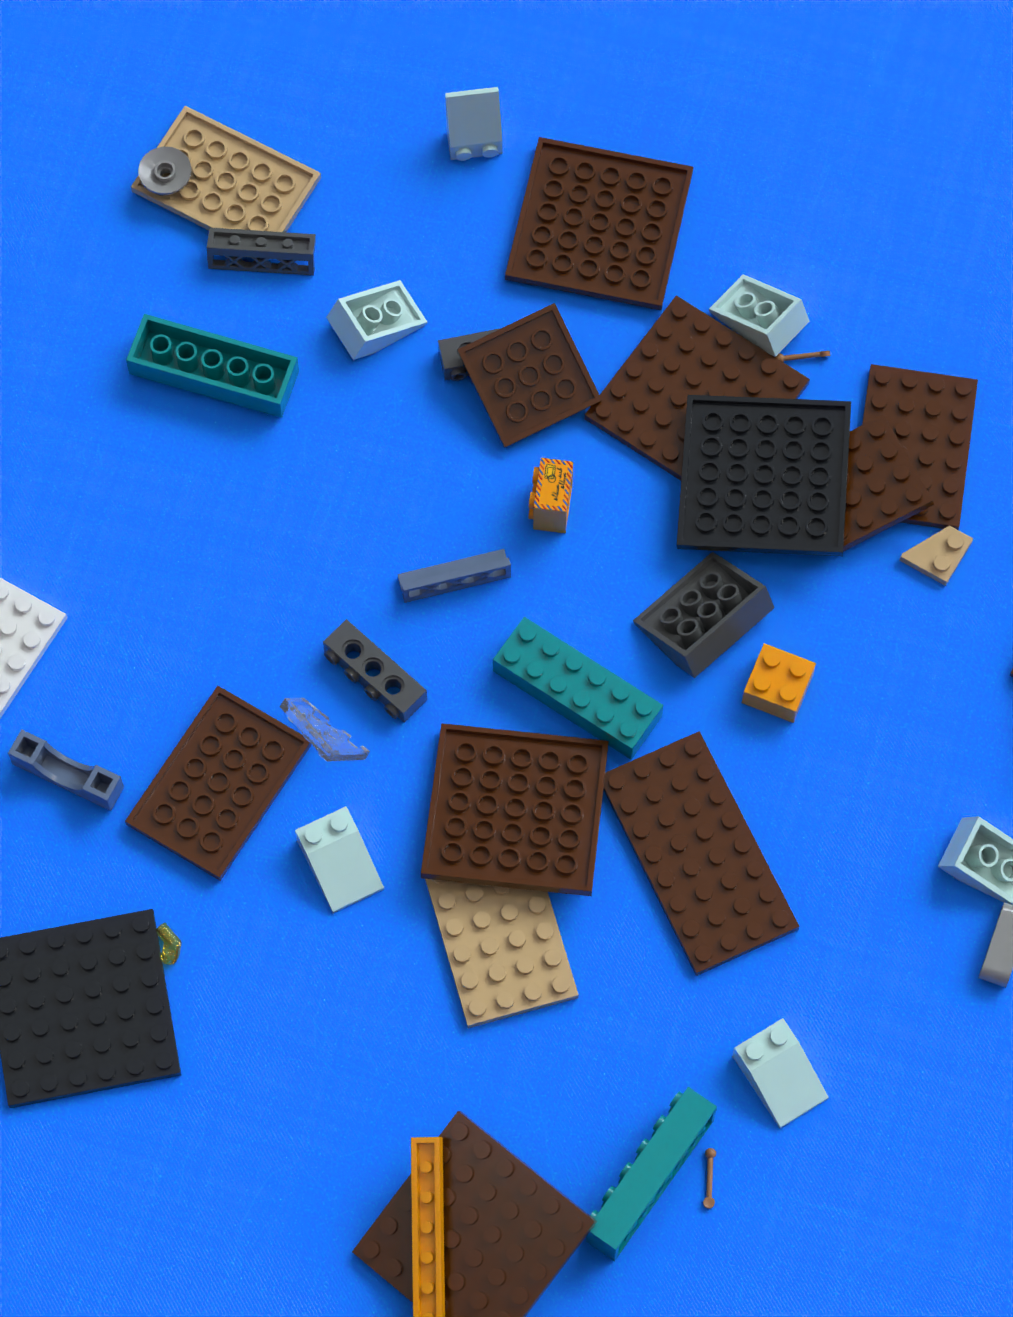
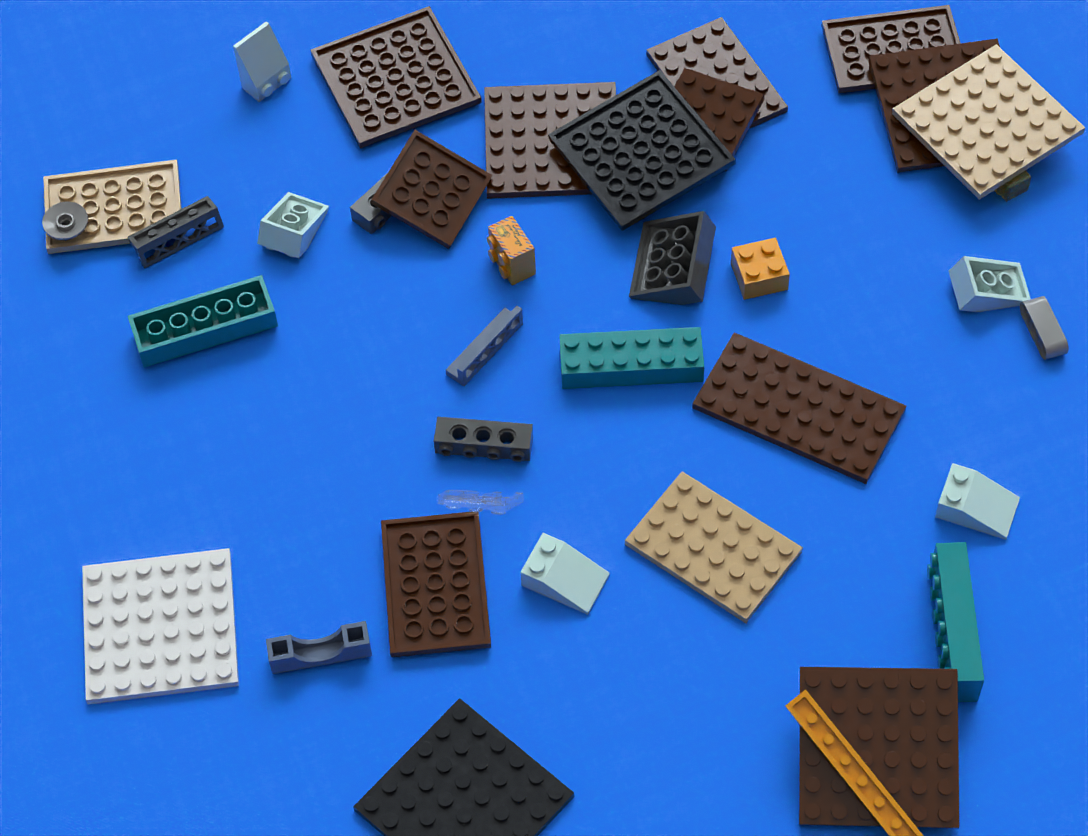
camera: 35 degrees left, 10 degrees down
(171, 946) = (492, 712): clear yellow arm -> none
(515, 810) = (658, 459): reddish brown plate -> none
(709, 1202) = (1004, 617): medium nougat hinge -> none
(761, 314) = (550, 62): light aqua slope -> none
(781, 357) = (608, 64): medium nougat hinge -> none
(939, 554) = (789, 131): tan wing -> none

